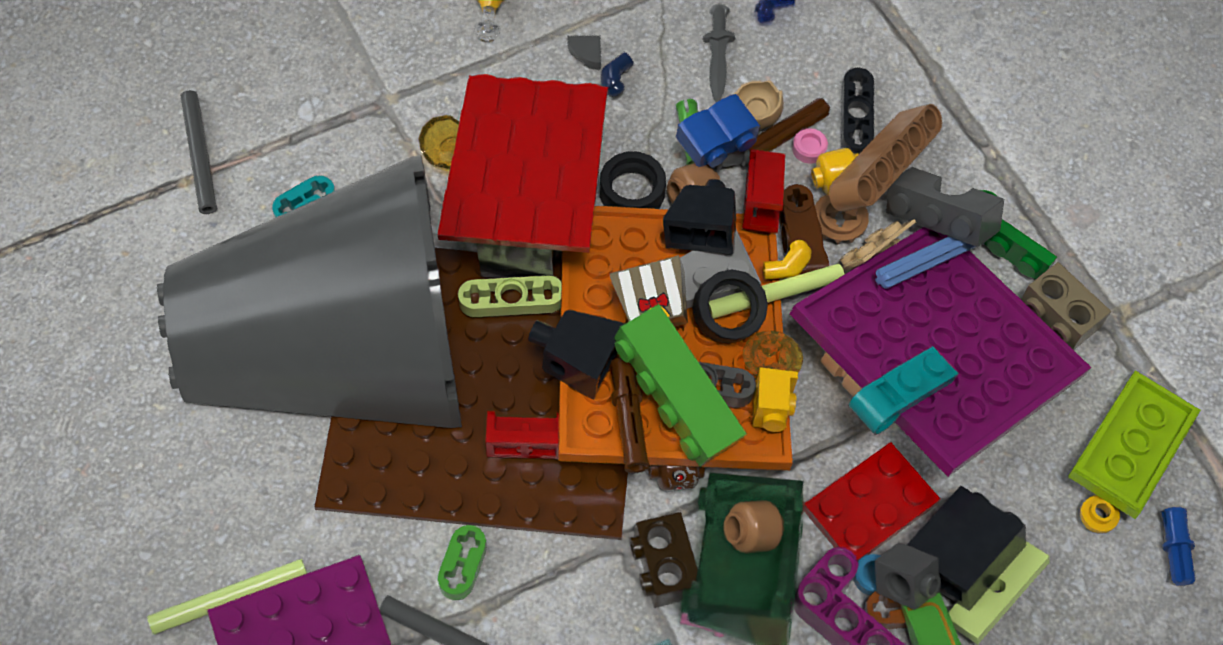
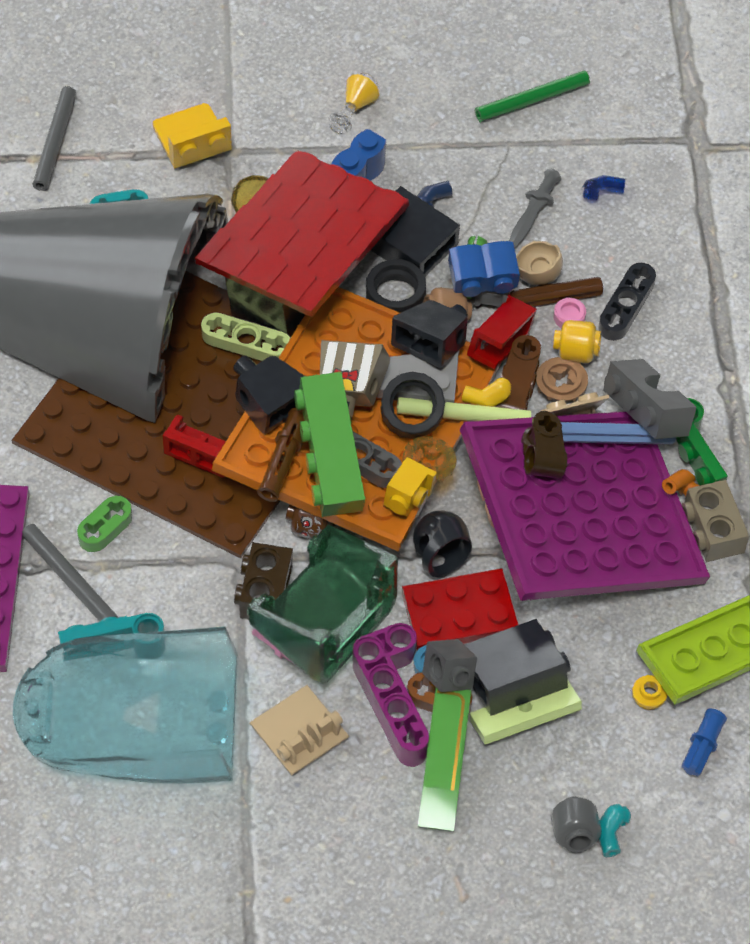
camera: 25 degrees right, 5 degrees down
(343, 96) = (193, 134): none -> yellow bracket
(532, 55) = (365, 155): none -> blue brick
(586, 49) = (418, 168): dark grey tile -> none
(630, 117) = (419, 235): none -> black brick
(754, 526) = (343, 580): medium nougat head -> none
(824, 431) = (442, 535): none -> black helmet
(885, 158) = (621, 341): medium nougat beam -> none
(888, 303) = (544, 447): none -> dark brown piece
(902, 388) = (517, 516): teal plate -> none
(1014, 282) = (679, 482): none -> orange arm

